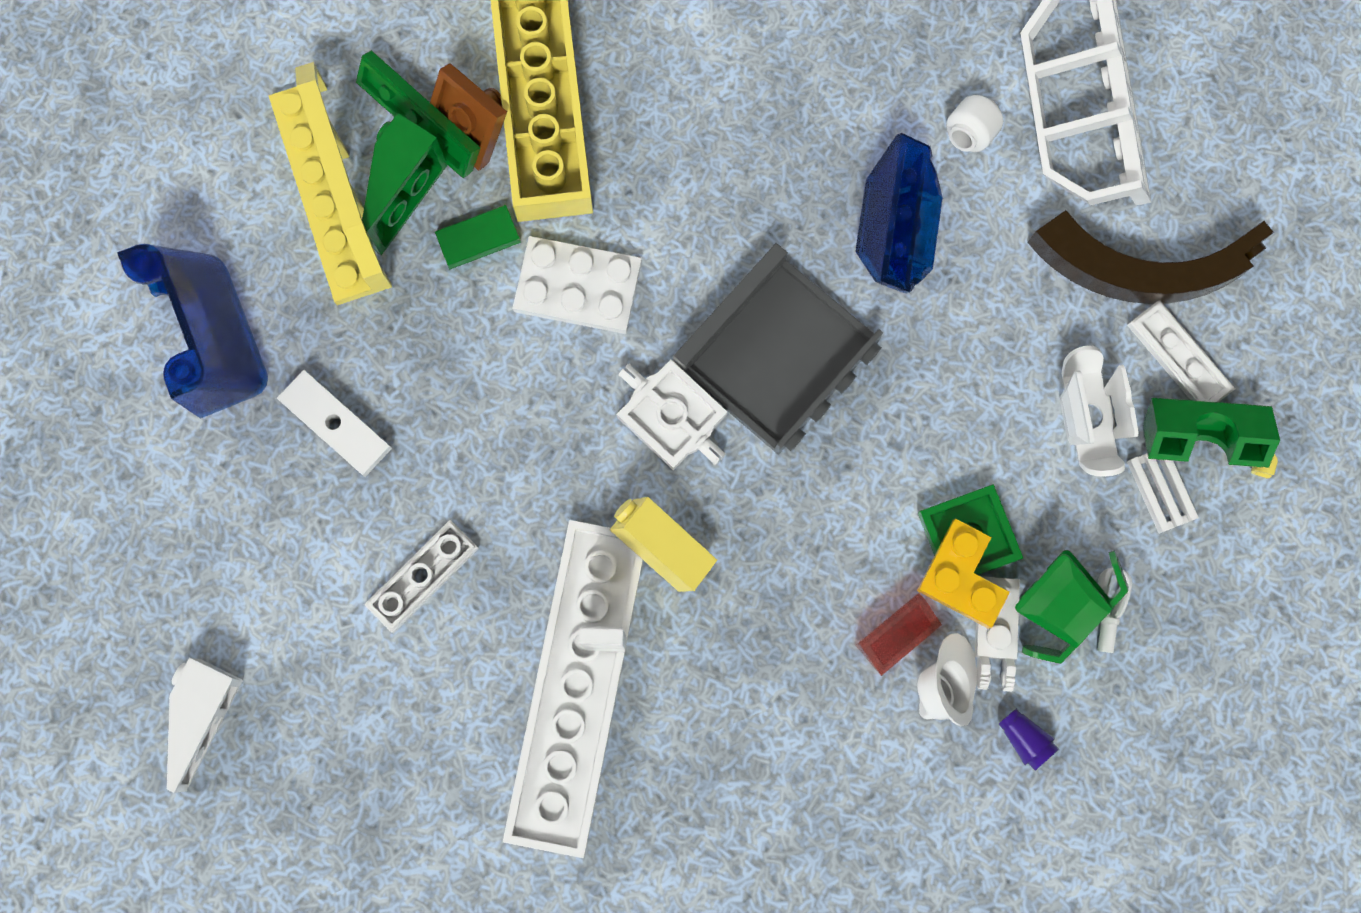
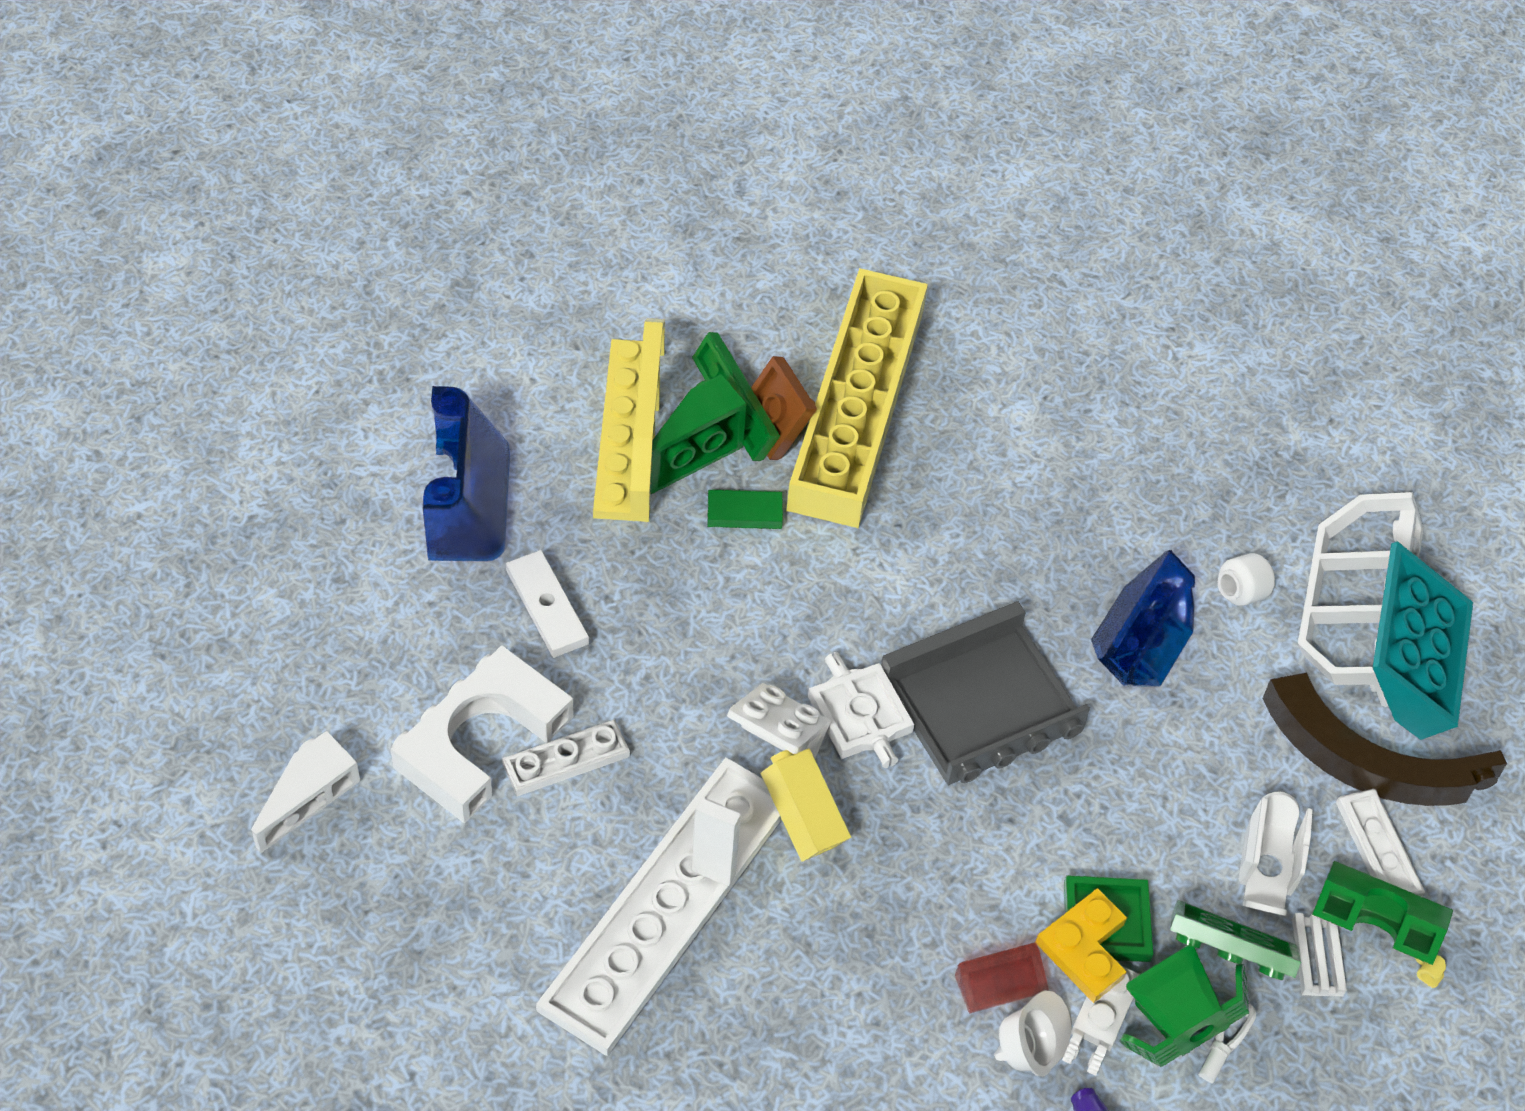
camera: 20 degrees right, 25 degrees down
(325, 532) = (497, 685): none -> white arch
(577, 284) = (819, 578): white plate -> none
(606, 472) = (780, 720): none -> white bracket
(1096, 524) = (1235, 940): none -> plate
(1166, 139) = (1421, 645): none -> teal slope

